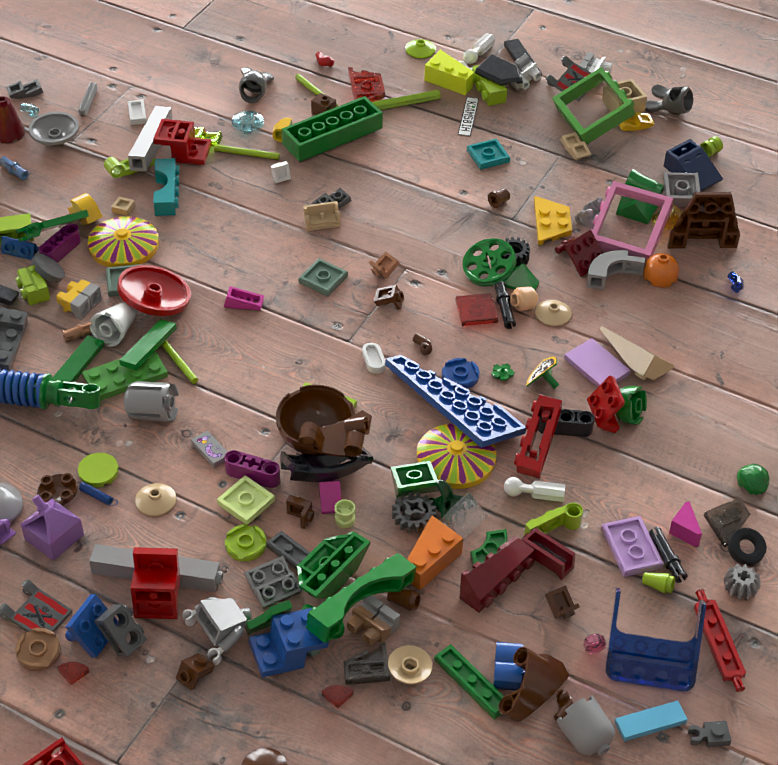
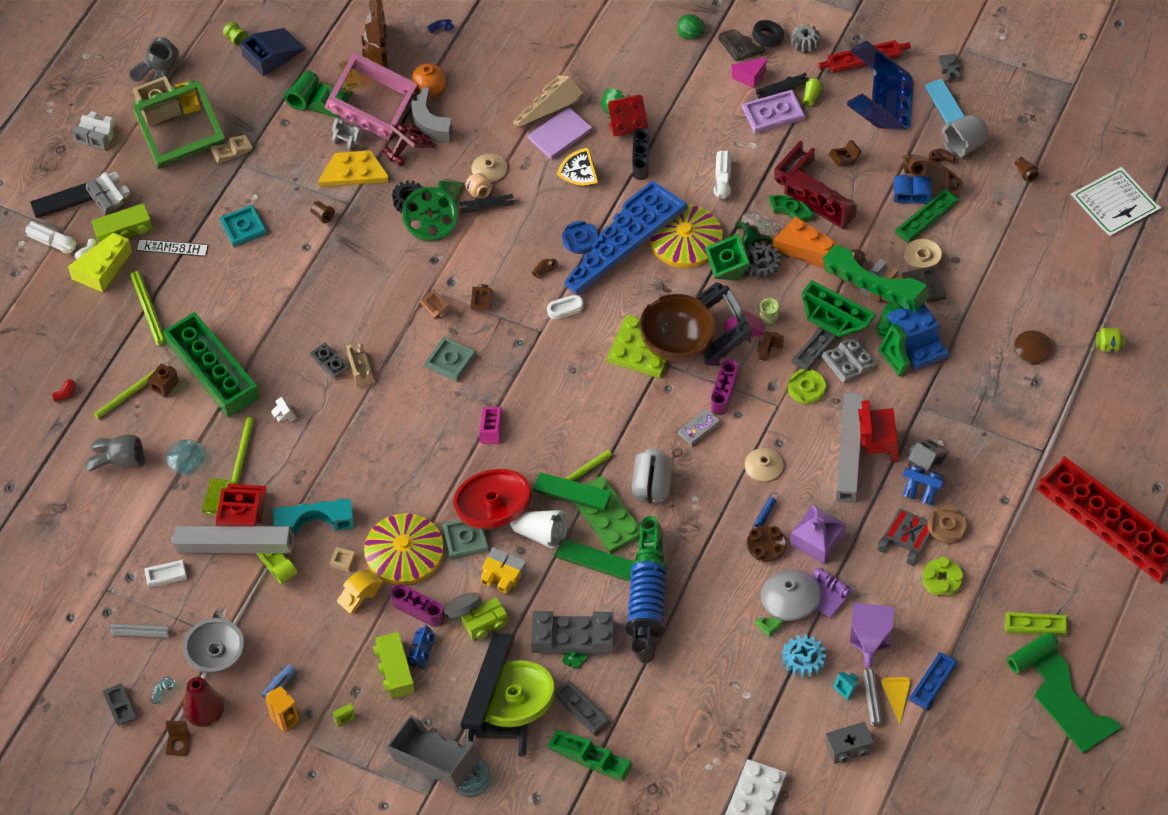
camera: 90 degrees left, 10 degrees up
(33, 230) = (398, 606): green tile -> none
(73, 671) = (965, 495): clear red tile -> none
(76, 332) = (549, 563): nougat axle -> none
(98, 469) = (735, 515): lime tile -> none
(192, 669) = (950, 403): reddish brown bracket -> none
(221, 621) = (903, 386): light grey torso -> none
(246, 500) = (761, 389): yellowish green plate -> none
(277, 129) = (205, 415): yellow rock -> none
(337, 694) = (956, 304): clear red tile -> none
(338, 439) = (704, 297): reddish brown panel -> none
(366, 84) = (122, 343): clear red wing -> none
(420, 48) = (39, 304): lime dish -> none
(476, 309) = (491, 227): clear red tile -> none
(499, 71) = (113, 207): black tile -> none
(502, 372) = (574, 205): green plant -> none
(529, 465) = (669, 166): red brick -> none
(567, 515) = (757, 162): lime plate -> none
(571, 76) = (119, 145): dark grey flag -> none
(594, 643) = (881, 134): clear pink tile -> none
(681, 187) = (311, 56): light grey slope -> none

